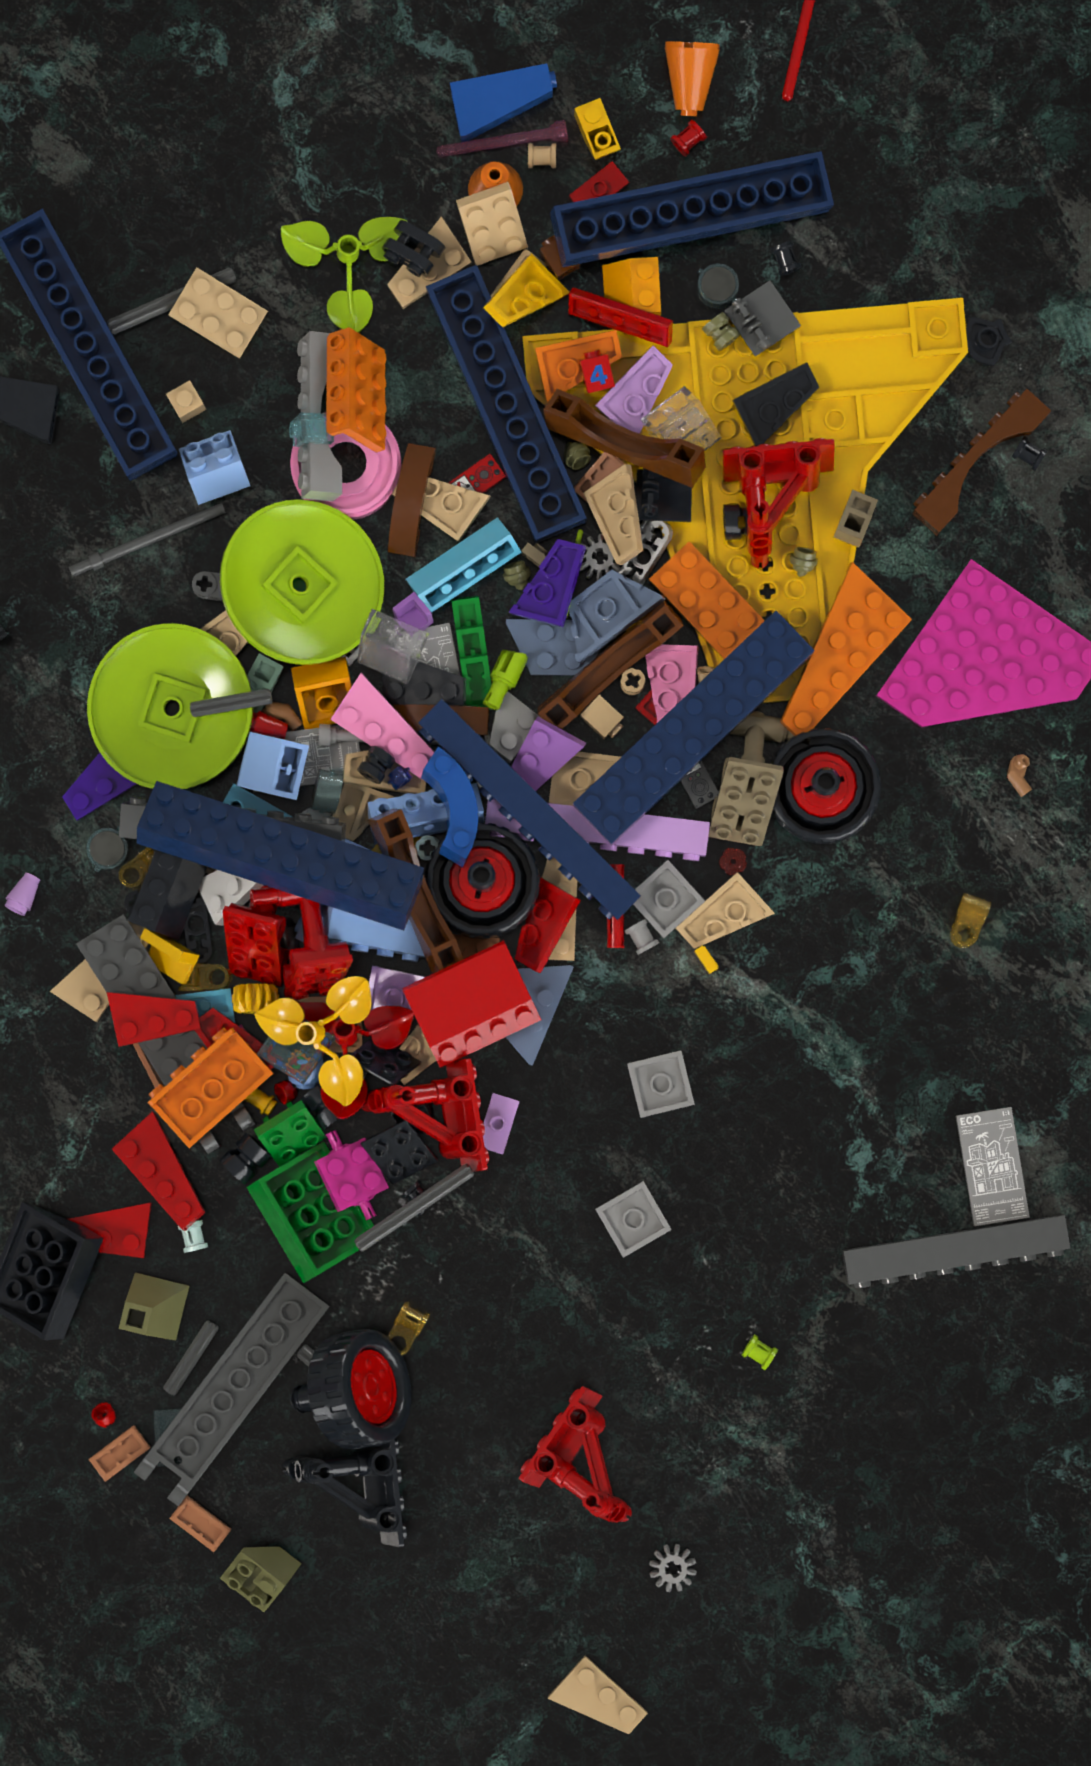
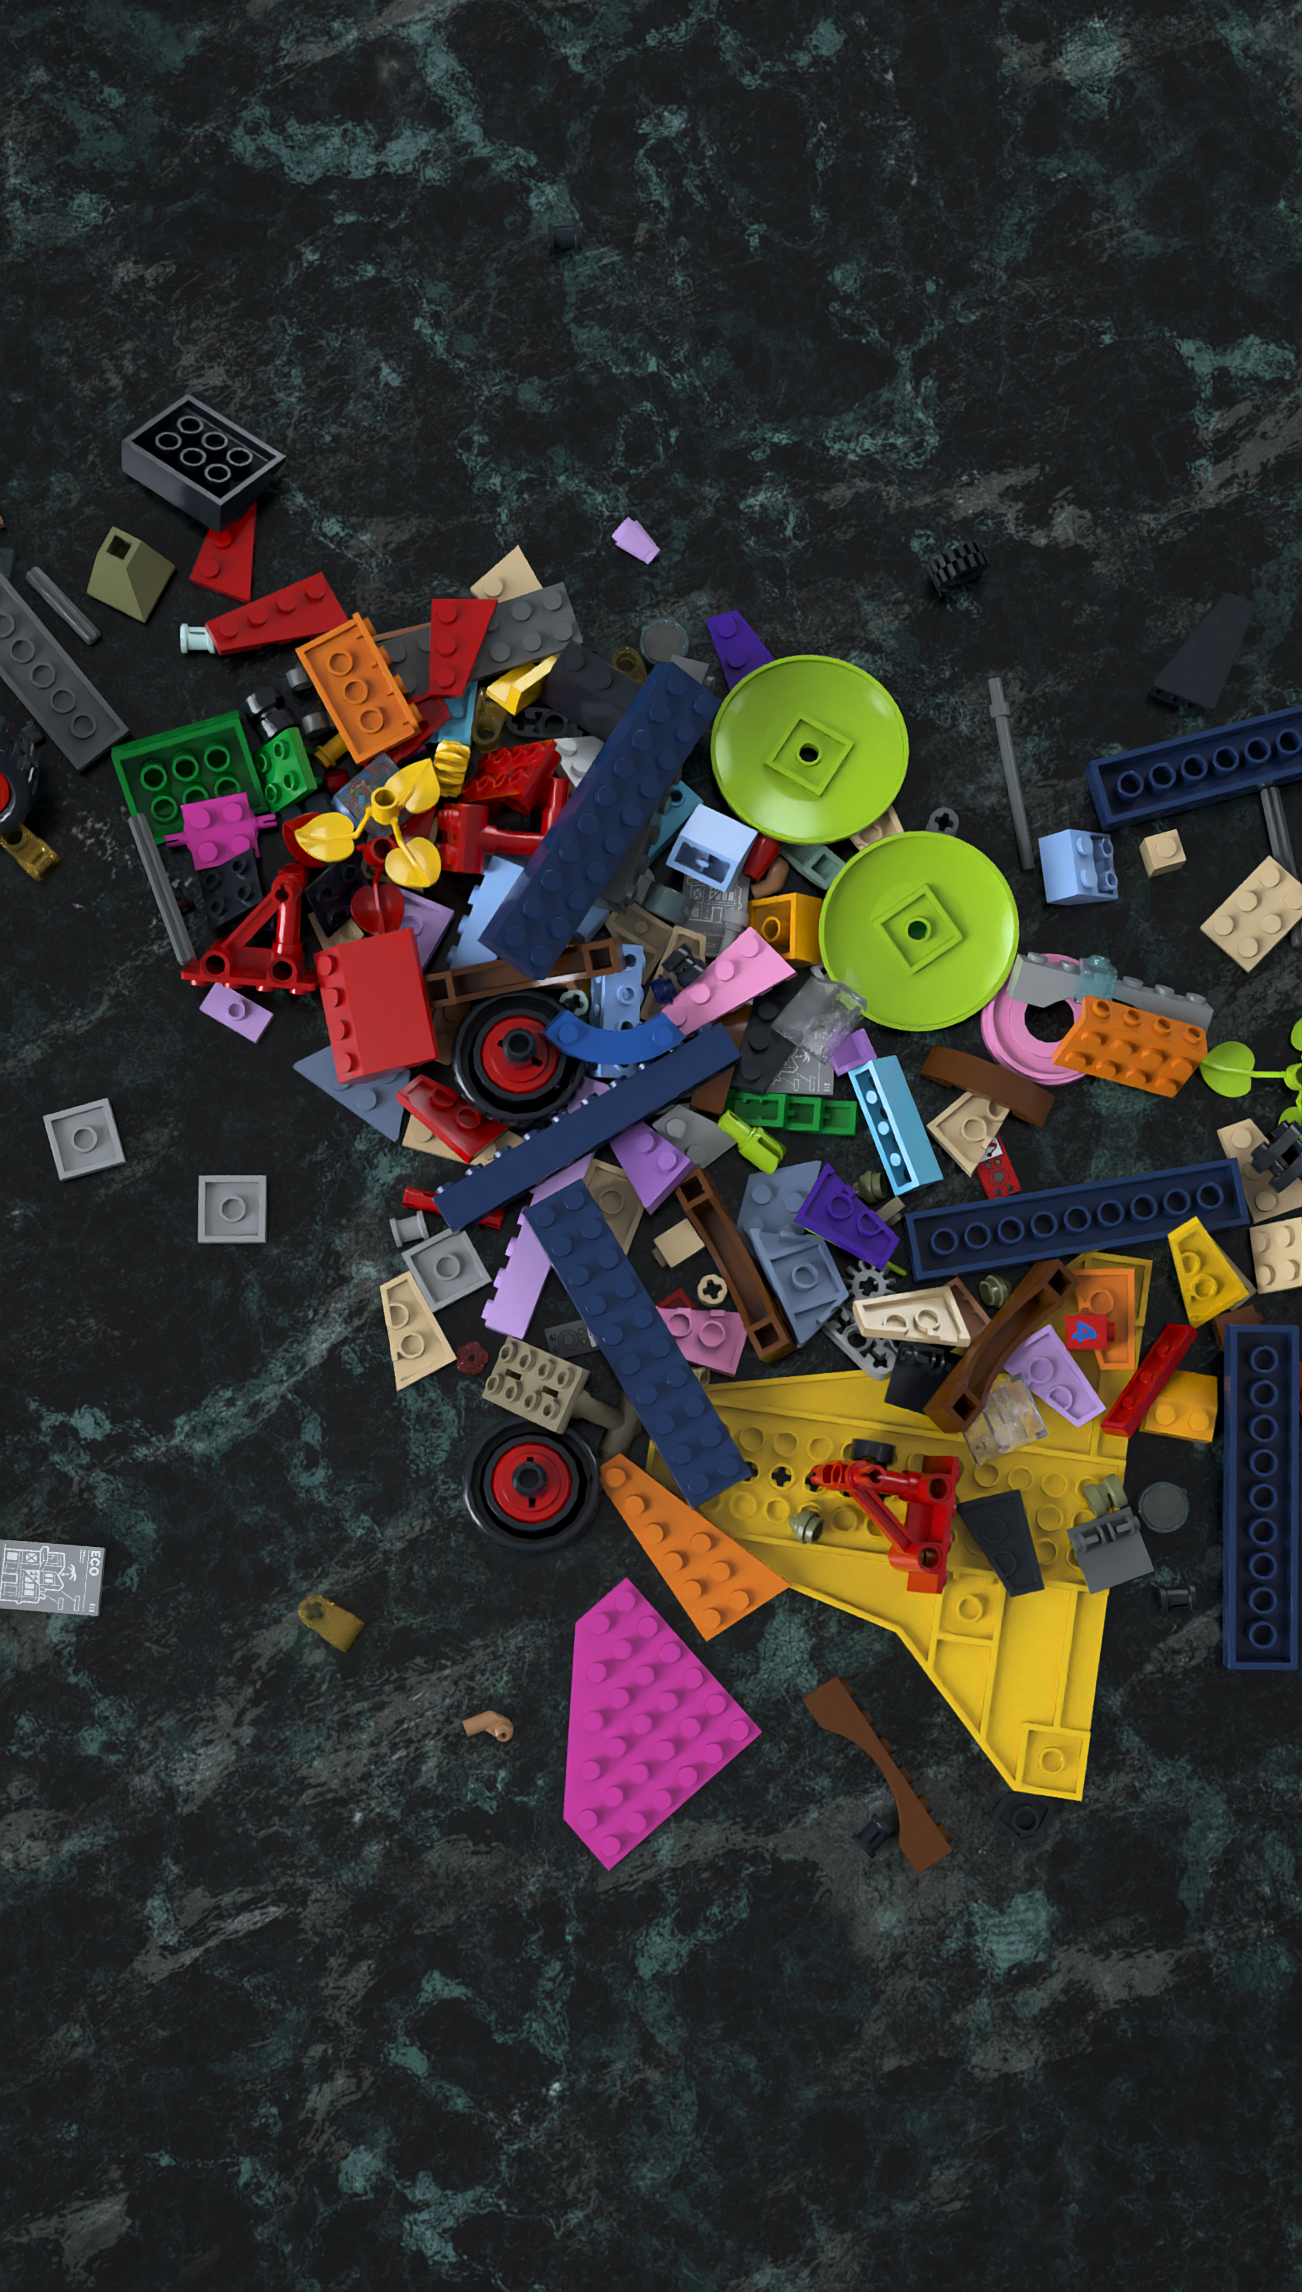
camera: 100 degrees right, 5 degrees down
(99, 1419) = (22, 489): red hinge -> none
(231, 702) = (796, 816): dark grey axle -> none
(706, 600) = (787, 1400): orange plate -> none
(706, 959) = (363, 1297): yellow tile -> none
(855, 518) = (841, 1600): dark tan brick -> none

